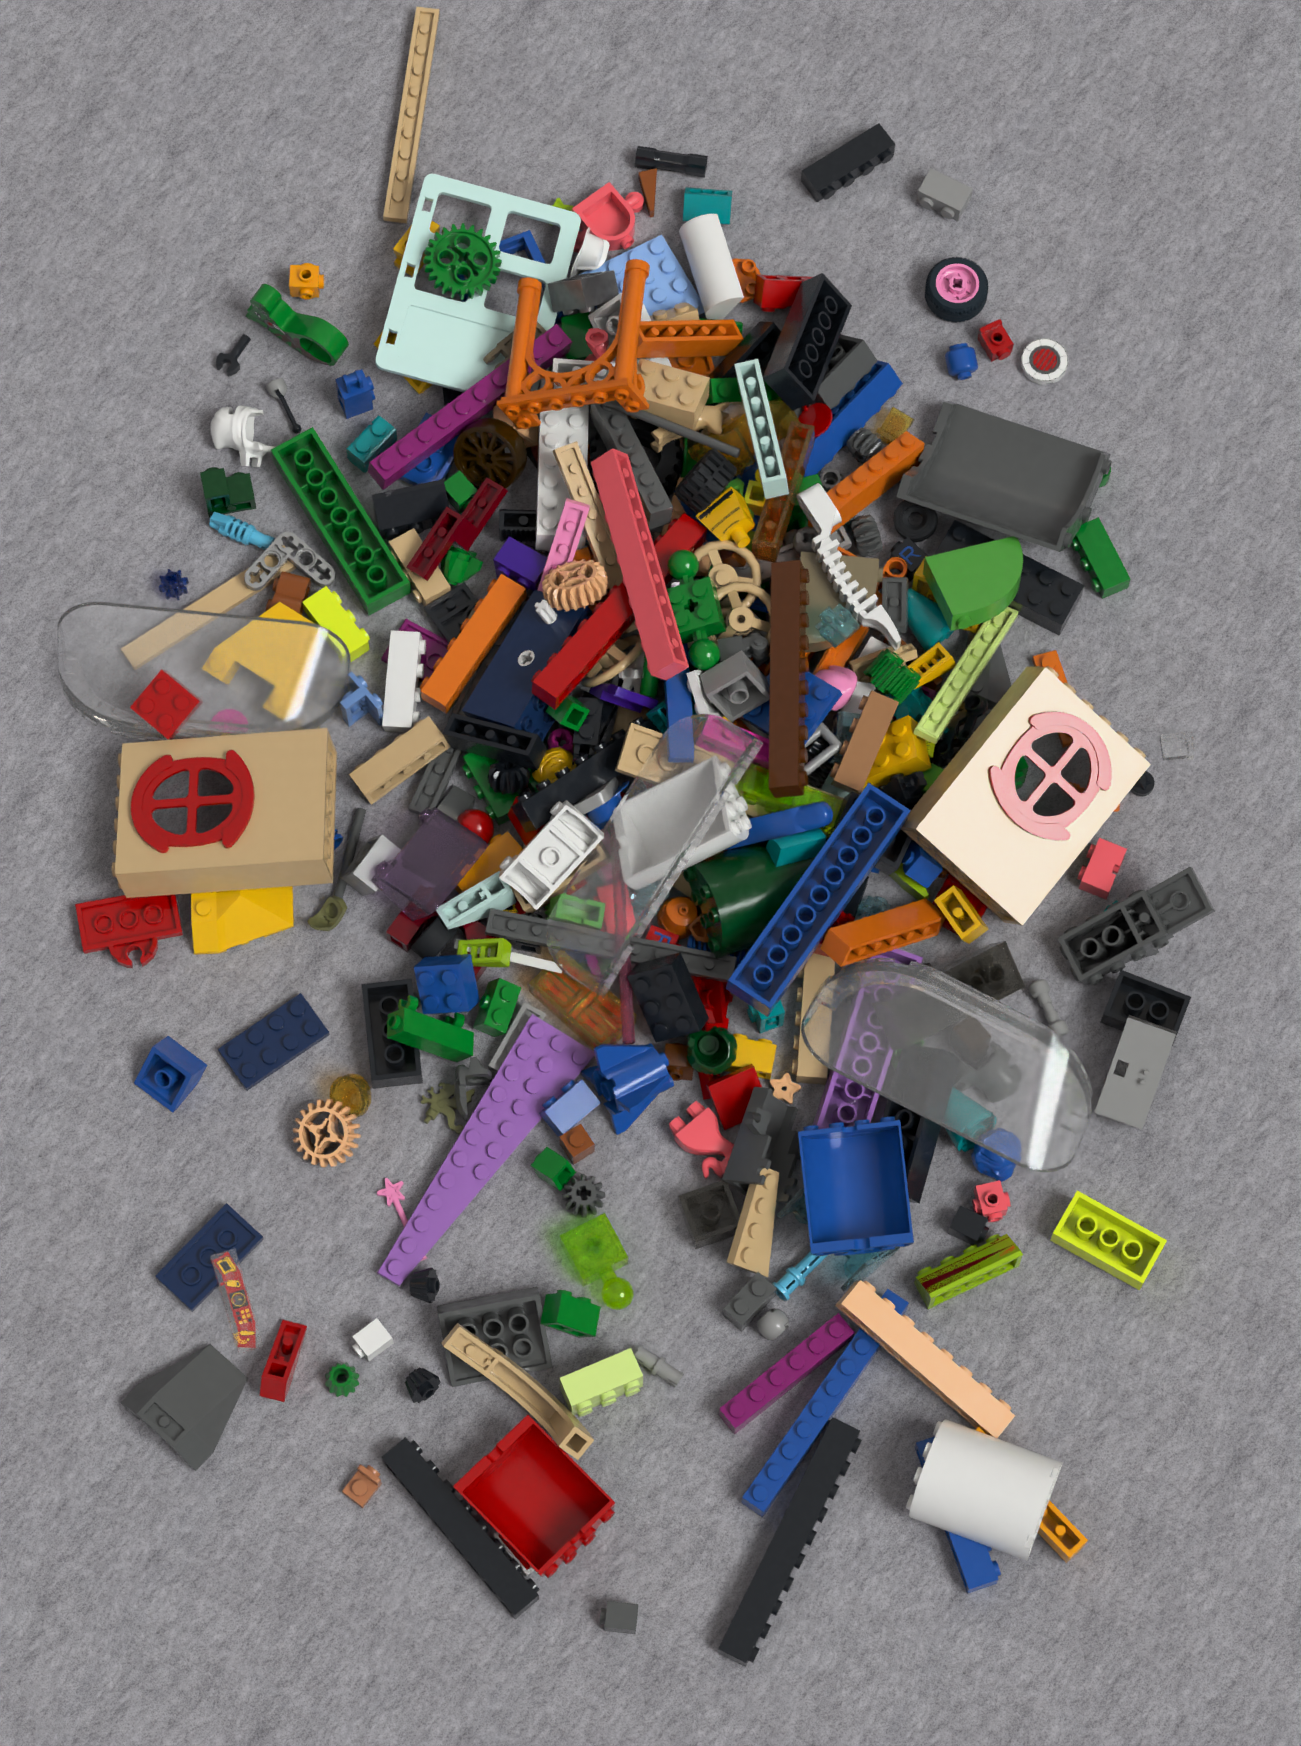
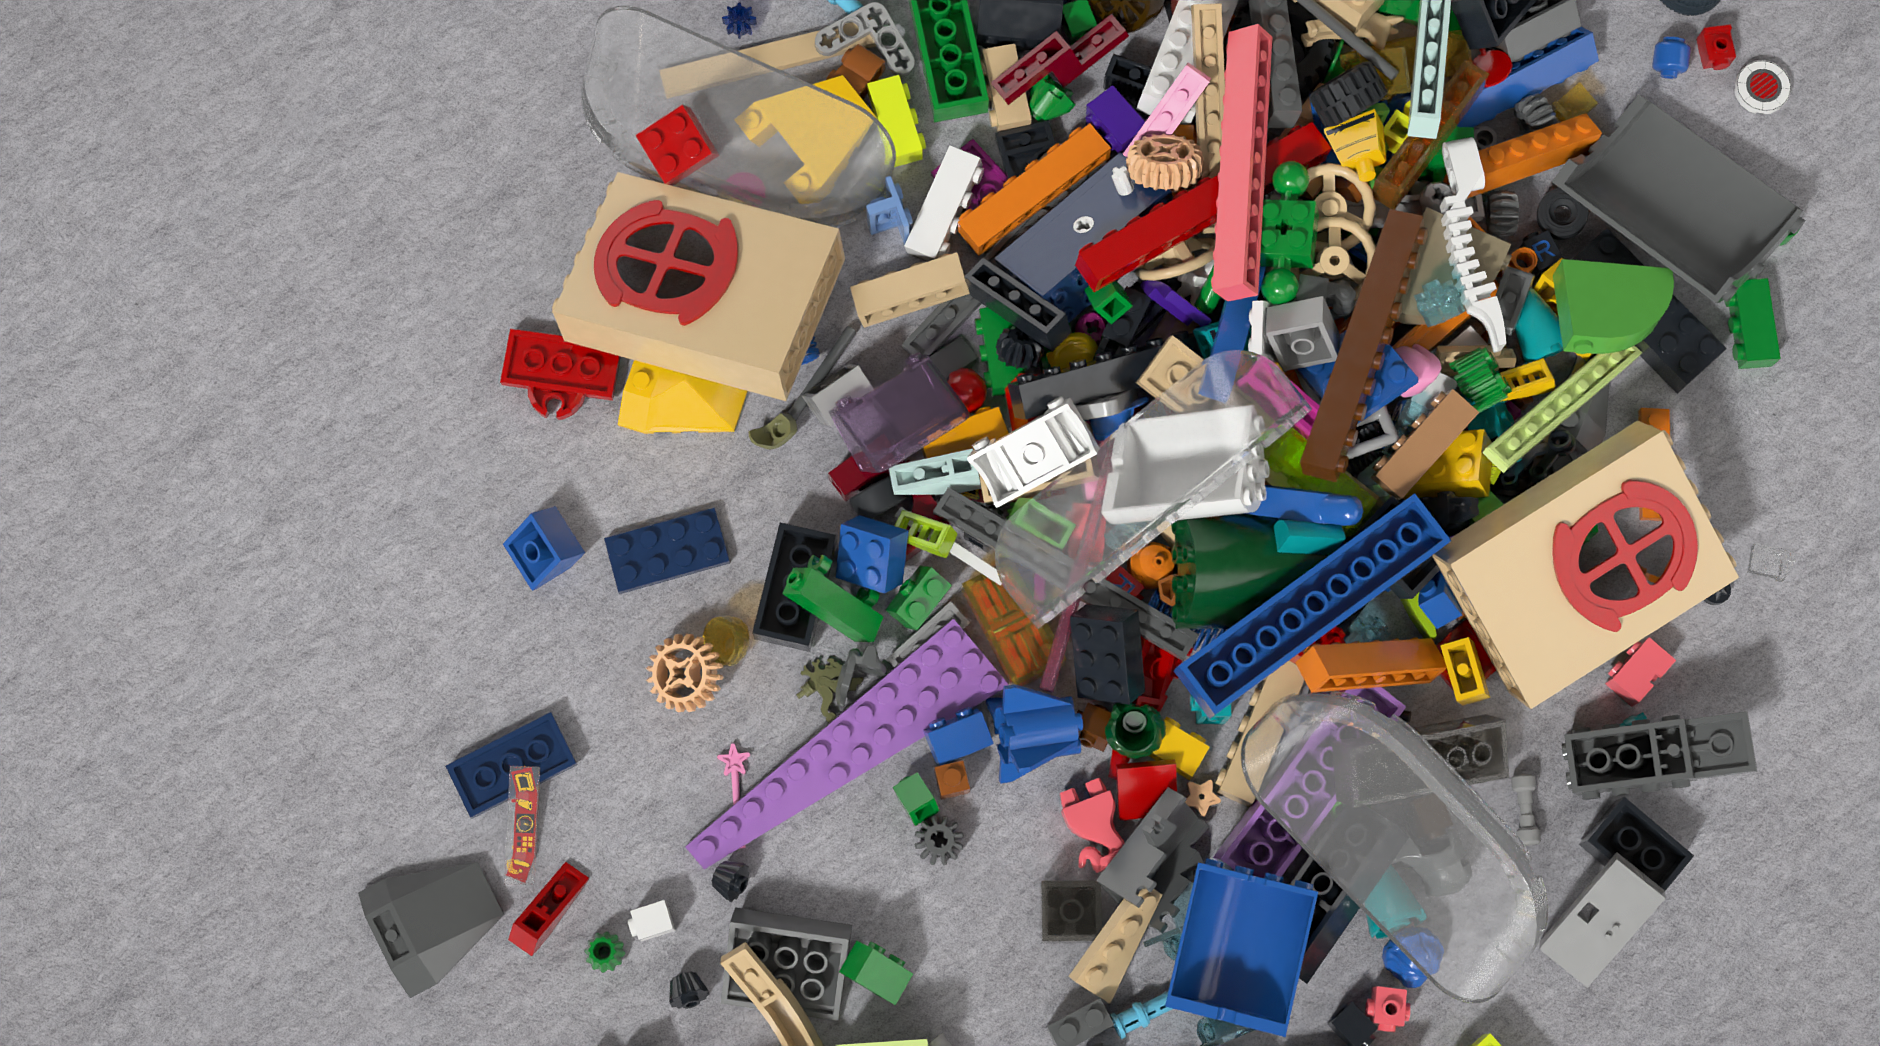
camera: 20 degrees right, 5 degrees up
(591, 1266) = (936, 962): clear neon green brick -> none

